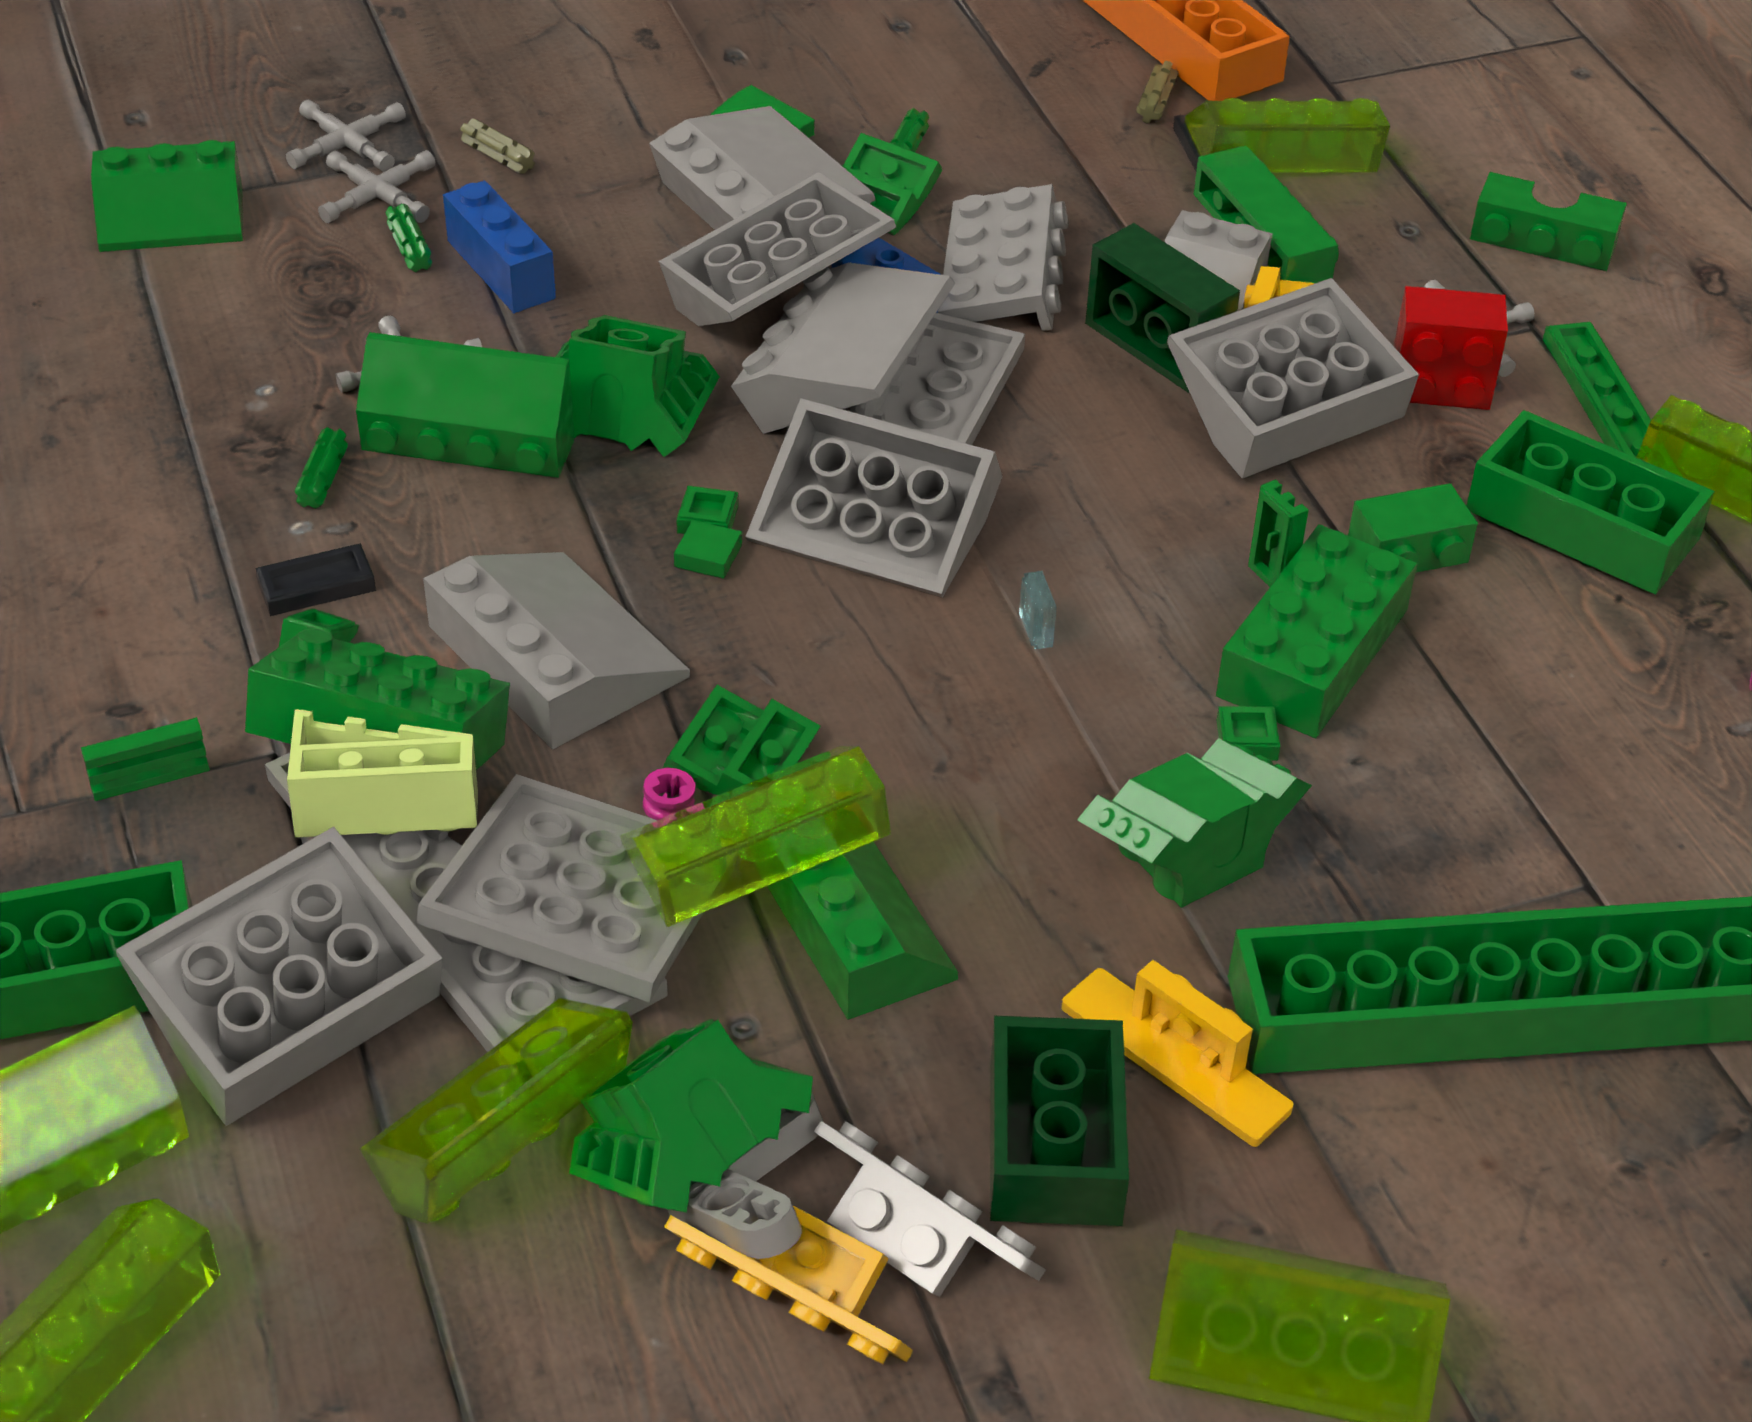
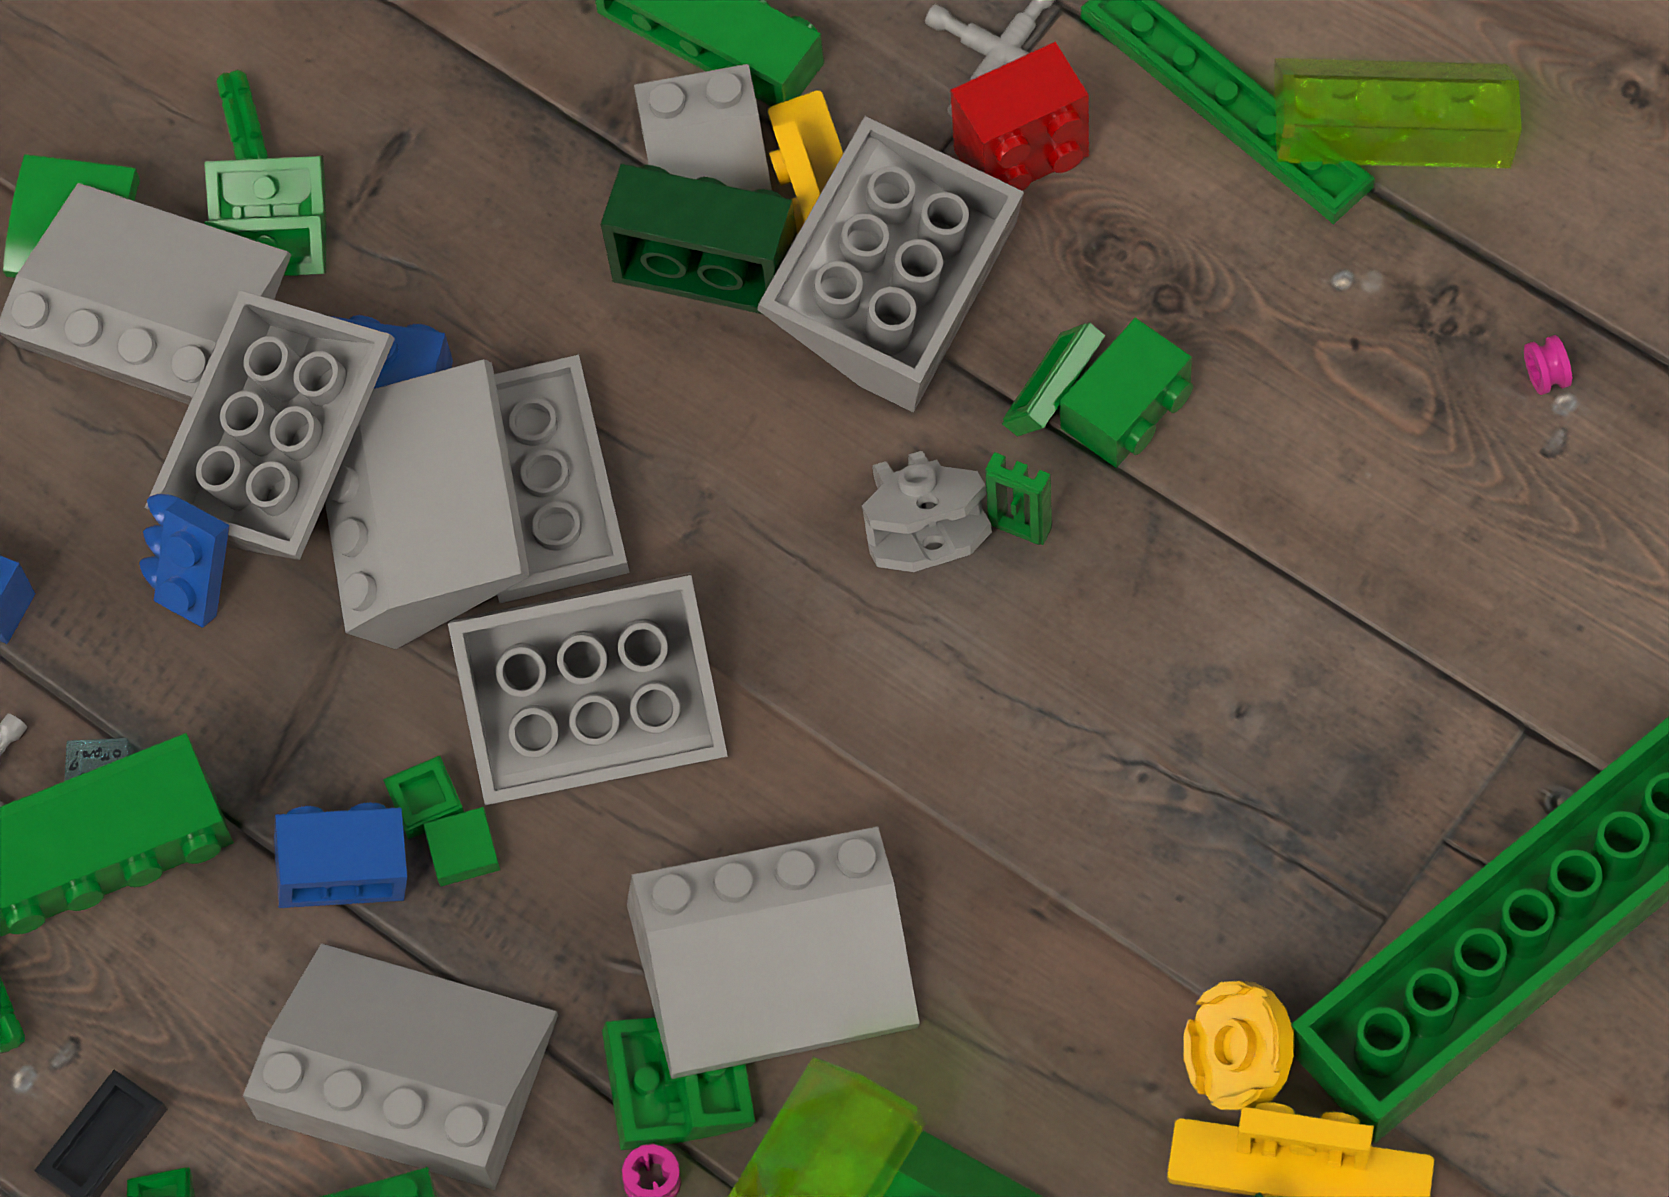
camera: 25 degrees left, 20 degrees up
(616, 502) = (340, 856): none -> blue brick
(636, 382) = (226, 675): green slope -> none
(667, 291) = (187, 558): none -> blue plate
(874, 683) = (773, 951): none -> light grey slope
(1006, 255) = (475, 247): light grey bracket -> none
(1037, 610) = (842, 727): clear light blue tile -> none
(1190, 933) = (1238, 1045): none -> yellow tile
(1198, 818) = (1159, 897): green slope -> none
(1199, 518) = (922, 511): none -> light grey hinge
(1251, 728) = (1126, 746): green tile -> none
(1316, 629) = (1119, 584): green brick -> none
(1339, 504) = (1052, 379): none -> green tile
(1589, 501) = (1273, 252): green brick -> none

